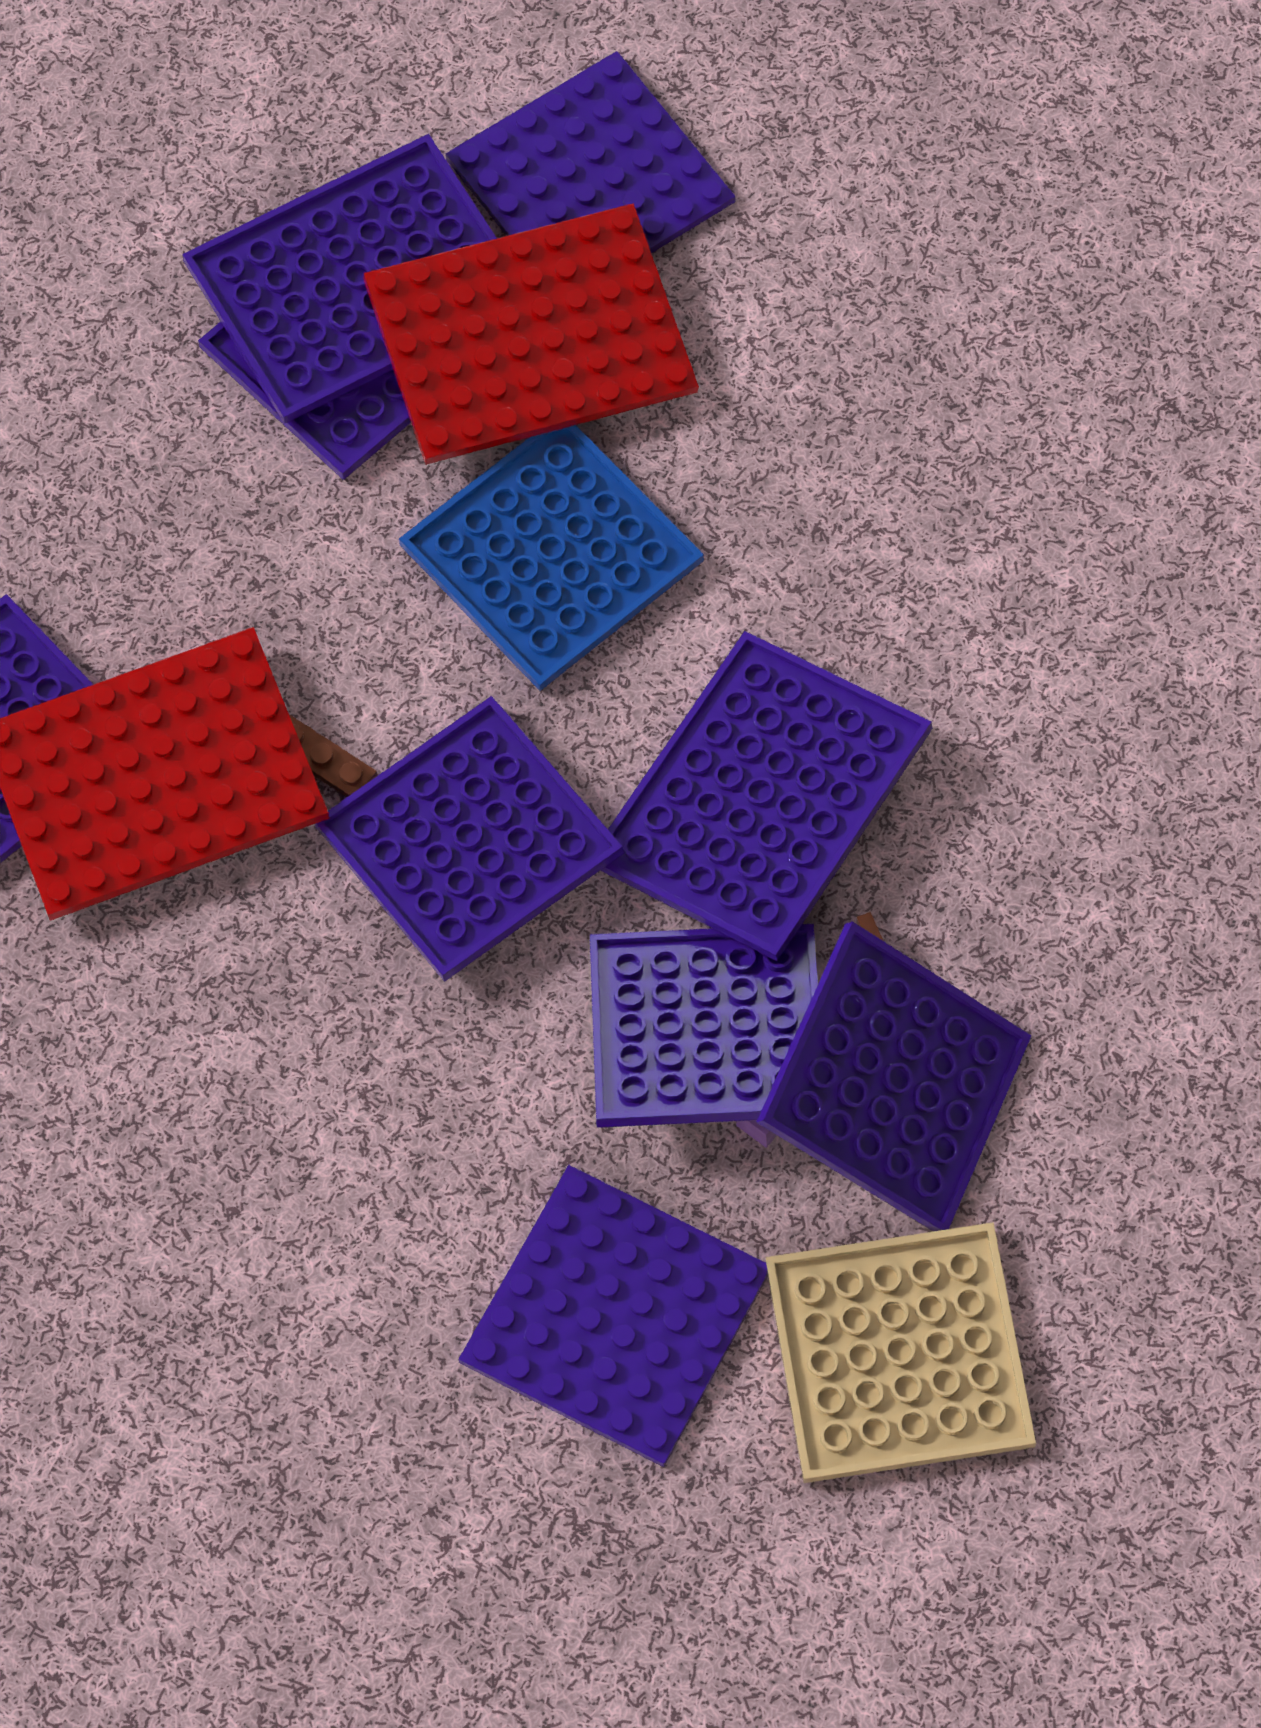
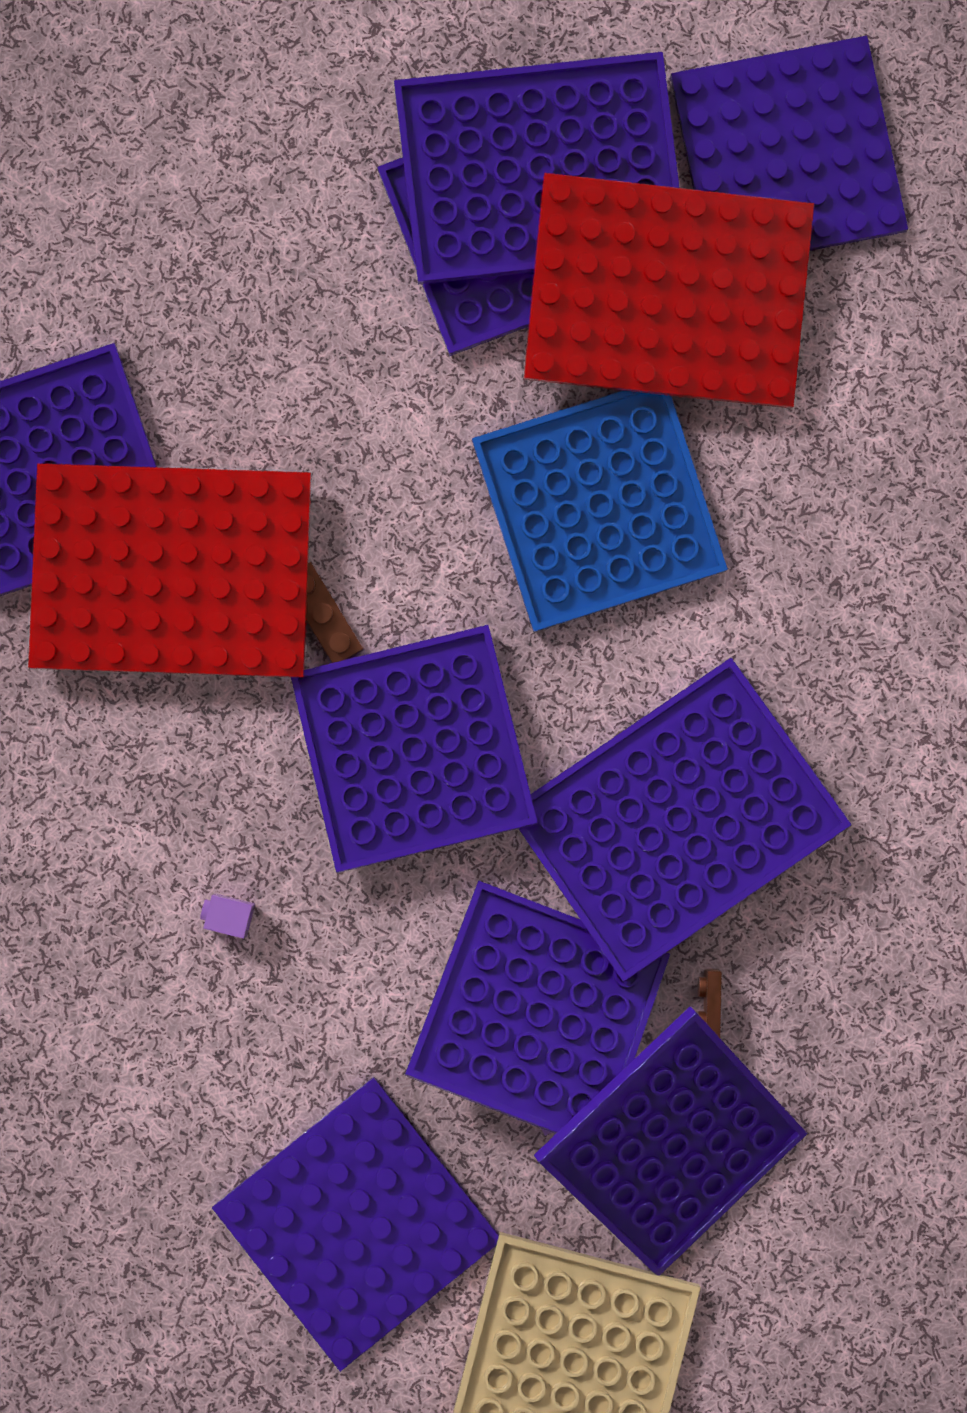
camera: 15 degrees right, 20 degrees up
(350, 1070) = (227, 915): none -> medium lavender brick

